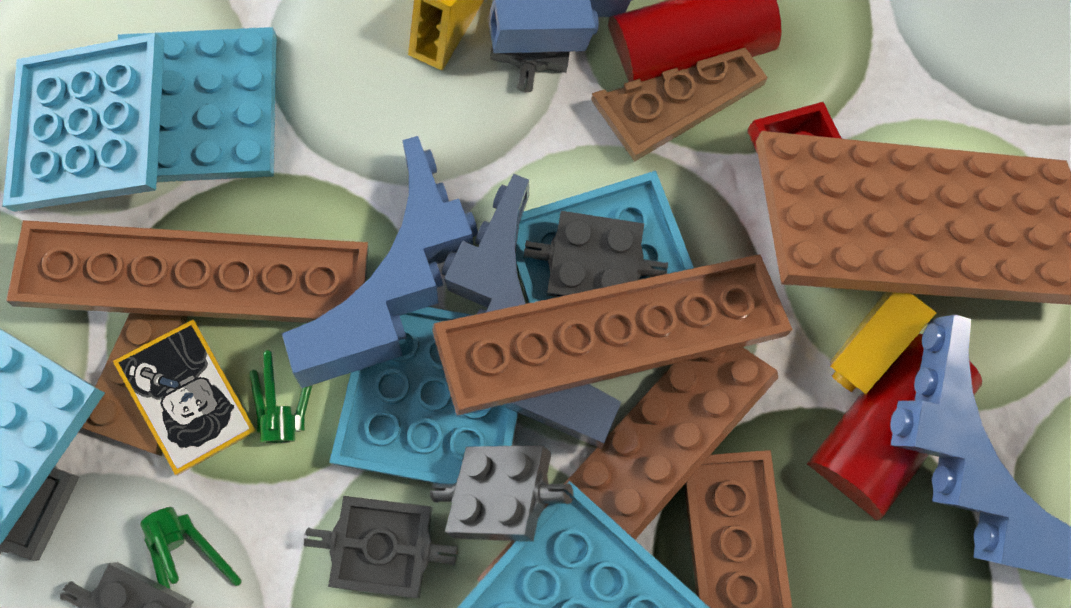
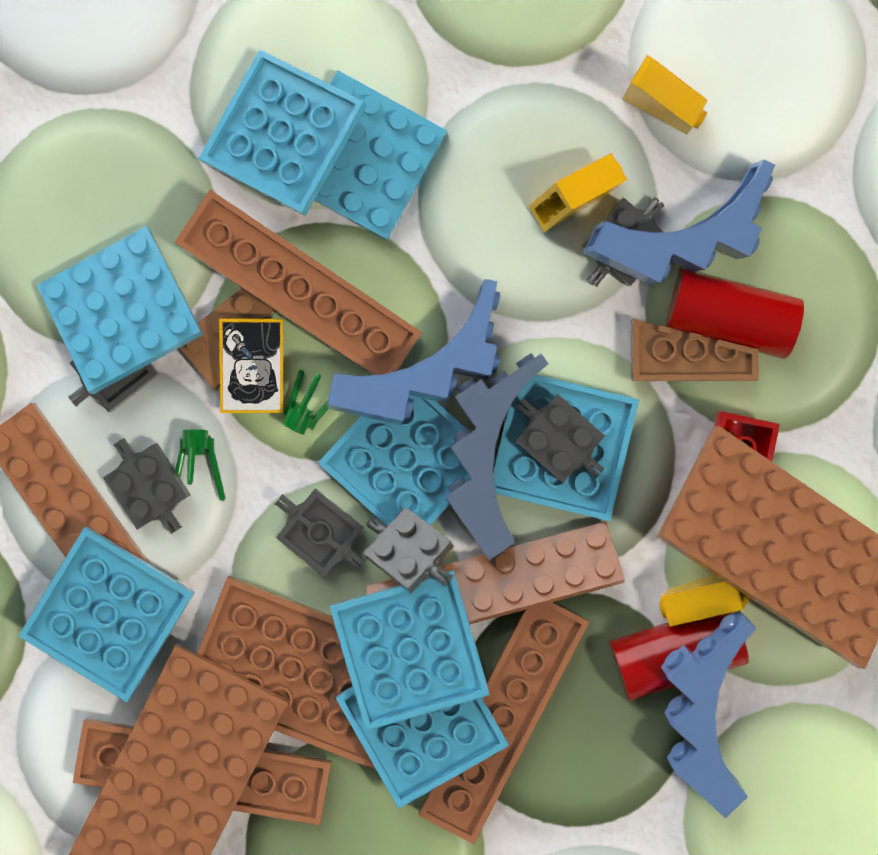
camera: 30 degrees right, 15 degrees up
(607, 333) = (537, 496): nougat plate -> none

